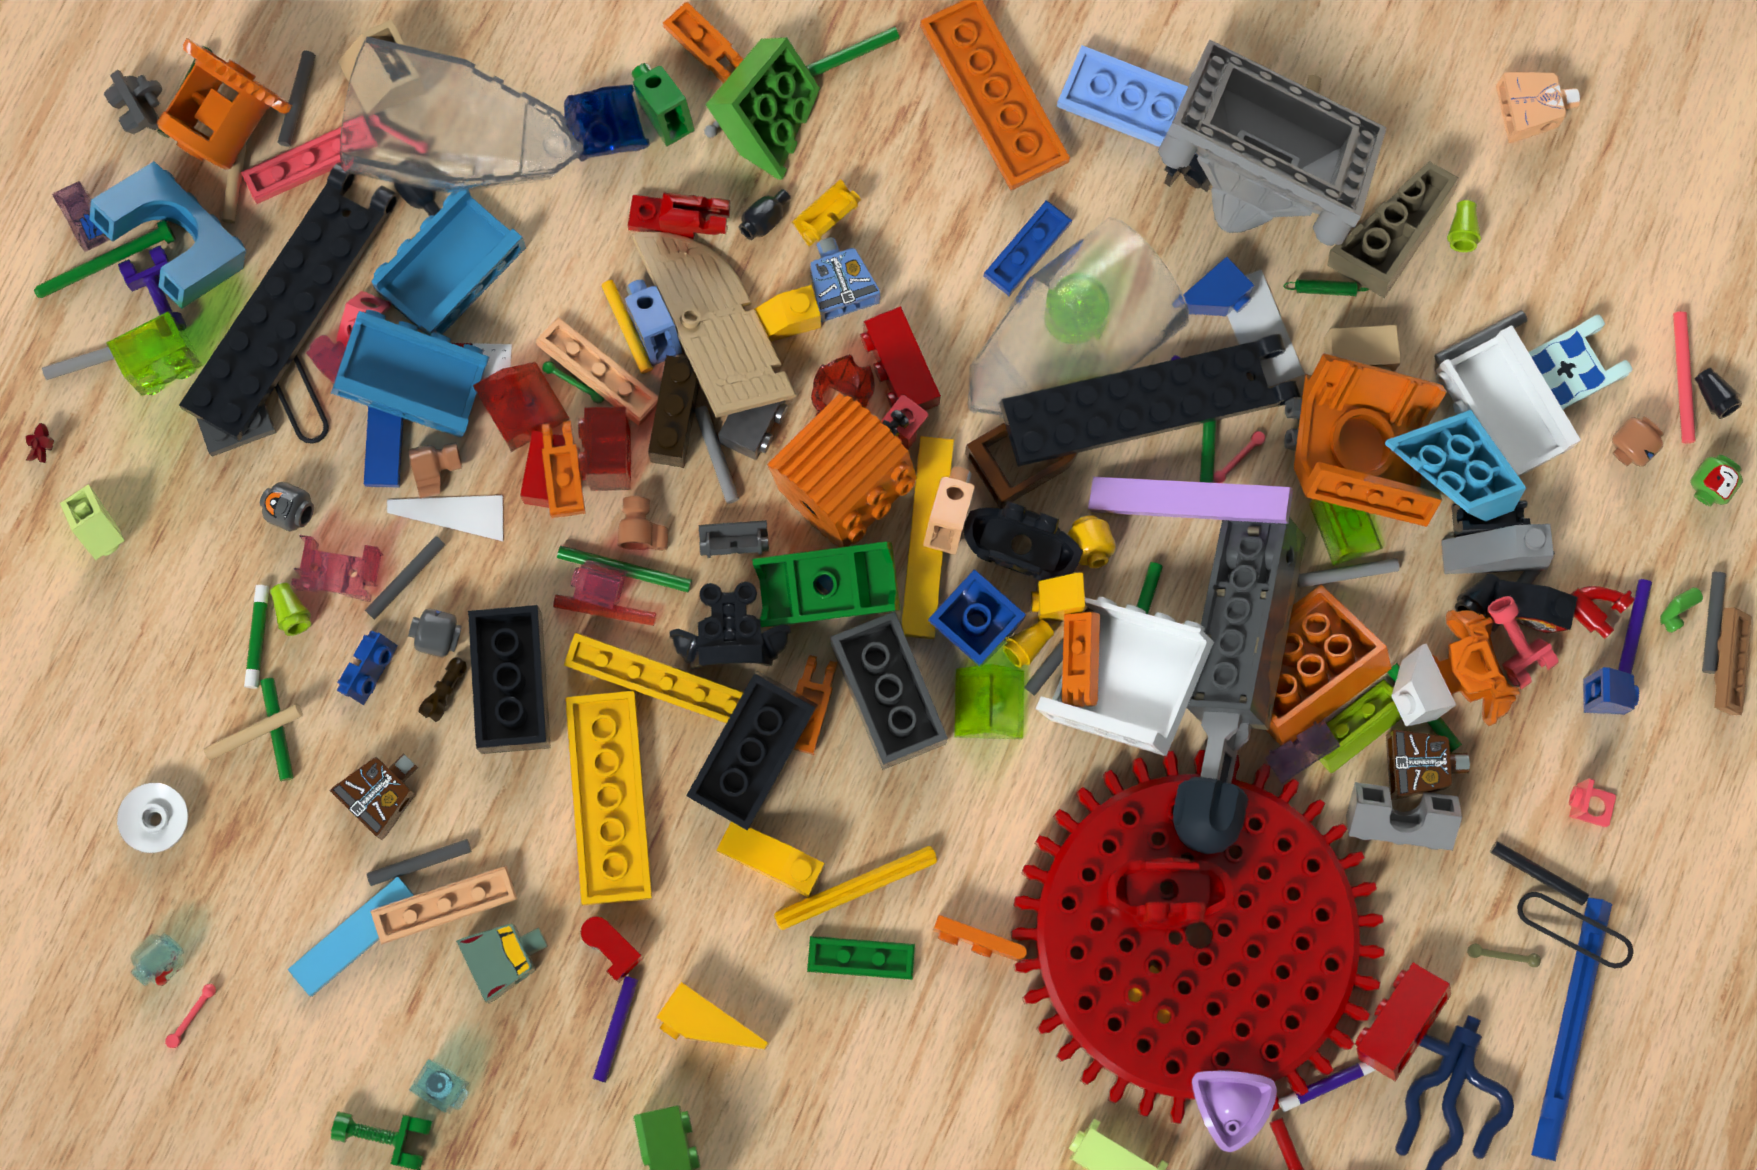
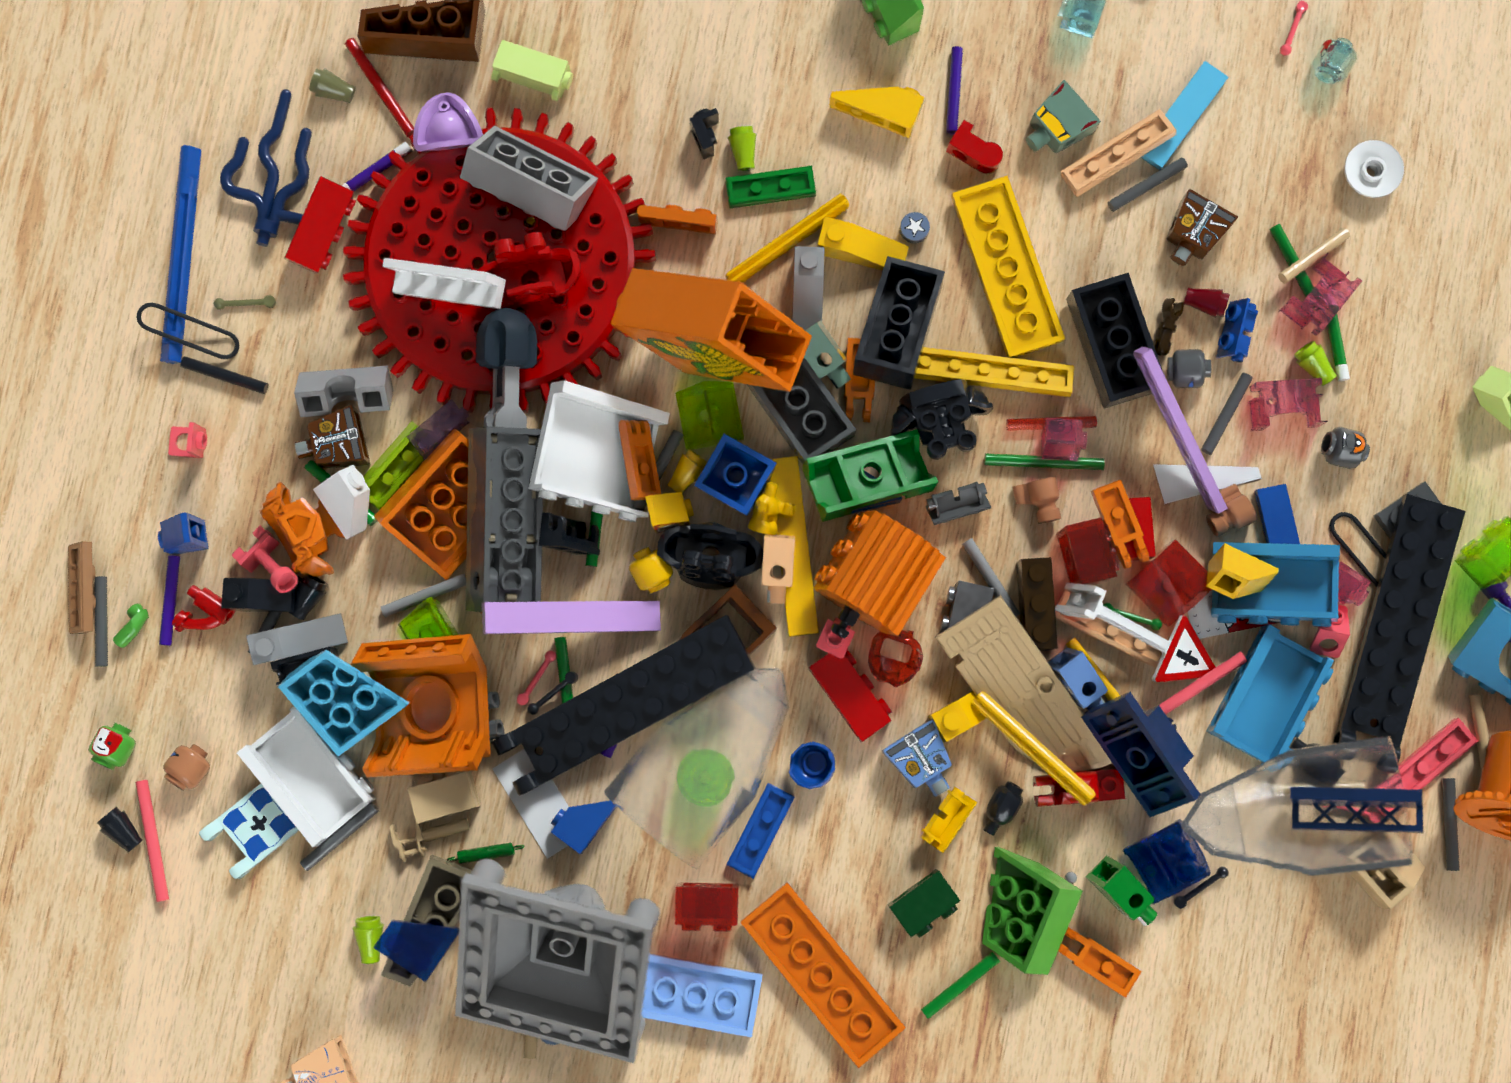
camera: 175 degrees right, 5 degrees up
(256, 677) = (1326, 297): none -> clear pink piece
(390, 707) = (1207, 300): none -> dark red cone
(393, 130) = (1357, 798): none -> dark blue fence
(451, 388) = (1238, 573): none -> yellow slope
(468, 557) = (1179, 429): none -> lavender tile
(528, 289) = (1203, 683): none -> coral bar
(532, 323) = (1181, 655): none -> white piece
(600, 82) = (1180, 902): none -> black hinge
(601, 227) = (1144, 752): none -> dark blue brick
(703, 870) = (914, 227): none -> sand blue tile
(720, 256) = (1033, 748): none -> yellow axle
(846, 816) = (808, 285): none -> light grey slope
(848, 736) = (823, 342): none -> sand green torso
(872, 135) = (924, 904): none -> dark green brick
(883, 1011) = (743, 147): none -> lime cone
(927, 1033) = (702, 134): none -> black bracket
(951, 573) = (767, 509): none -> yellow piece
(959, 296) = (812, 765): none -> blue hair
(975, 764) = (711, 328): none -> orange brick
(1101, 178) = (707, 905): none -> clear red brick
(1147, 1014) = (528, 177): none -> light grey slope
(1177, 591) = (568, 535): none -> black hinge
(1203, 444) = (570, 678): none -> black hinge
(1266, 898) = (446, 283): none -> white fence
(1387, 318) = (427, 835): none -> tan piece
(1416, 197) = (416, 945): none -> clear blue wing

